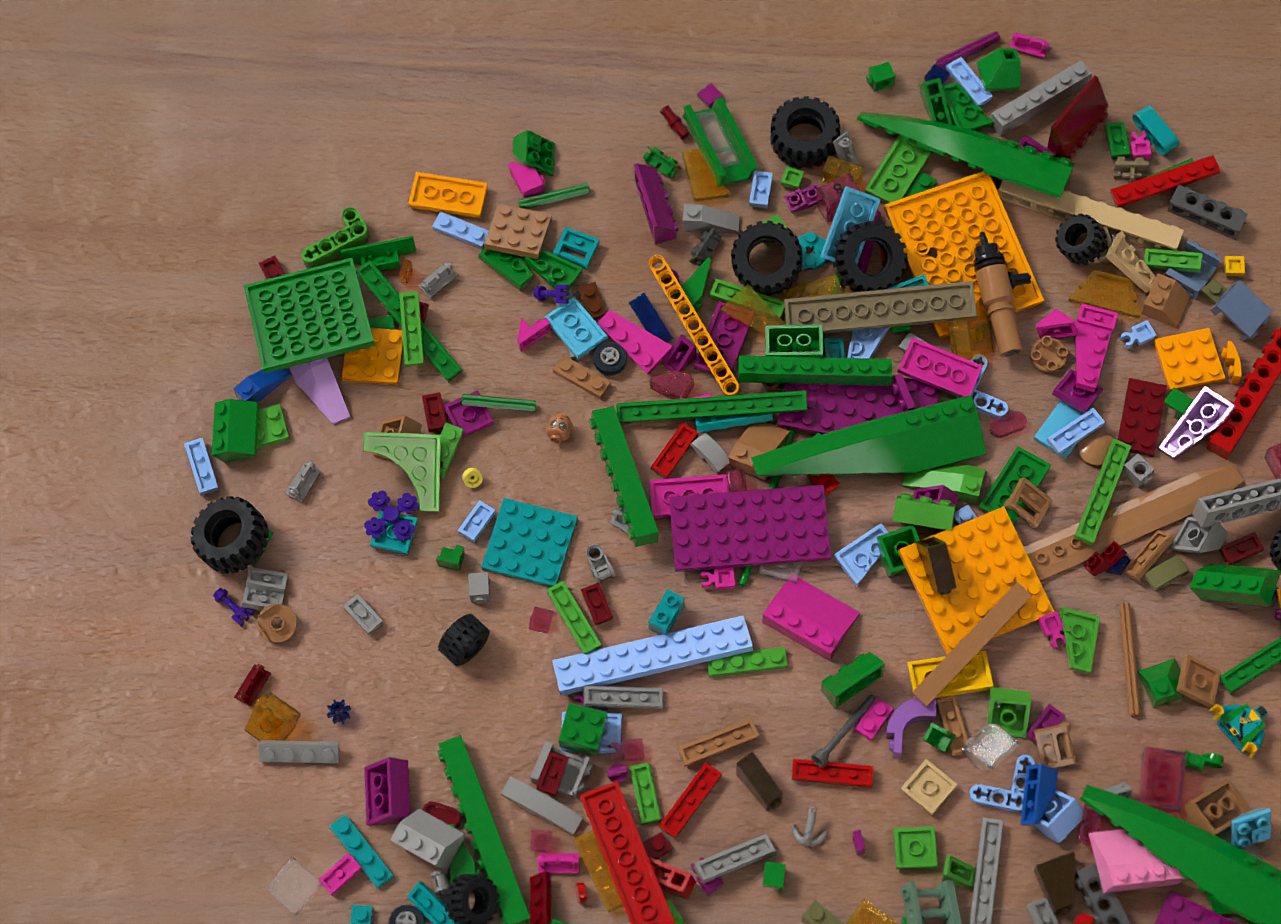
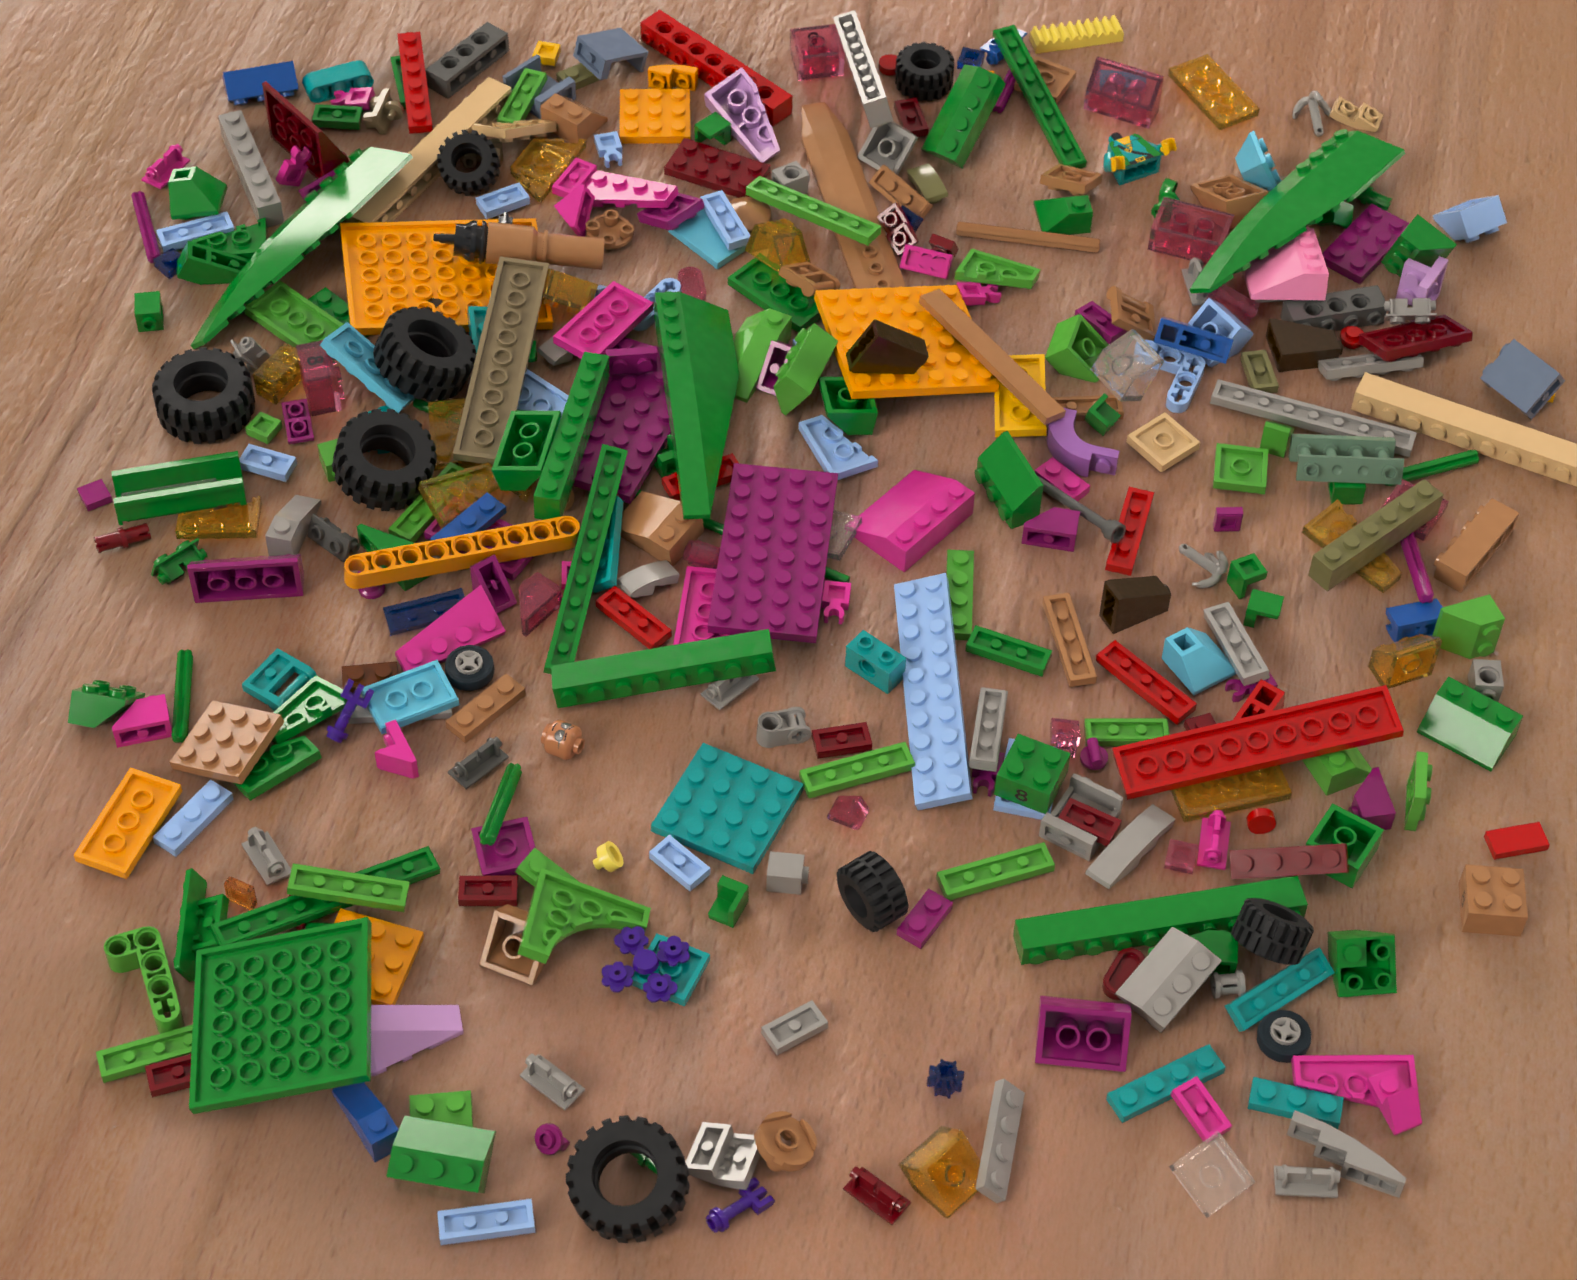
camera: 85 degrees left, 15 degrees down
(263, 489) = (550, 1139): none -> magenta plate
(283, 251) = (135, 1055): none -> bright green plate
(463, 681) = (924, 918): none -> magenta plate
(506, 720) = (995, 871): none -> bright green plate
(533, 383) = (478, 763): none -> dark grey hinge
(698, 702) = (1008, 650): none -> green plate
(716, 832) = (1196, 660): none -> medium azure slope
(728, 326) = (475, 518): none -> blue plate
(803, 859) = (1245, 572): none -> green panel
(820, 719) = (1052, 529): none -> magenta slope
(1022, 853) = (1259, 371): none -> olive plate
(1043, 125) = (293, 170): none -> dark pink plate
(1055, 474) = (777, 244): none -> clear yellow slope
(1059, 274) = (502, 200): none -> light blue plate
(1076, 586) = (926, 261): none -> dark pink plate
(1097, 595) = (943, 245): none -> dark red tile
(1137, 78) = (247, 82): none -> blue slope

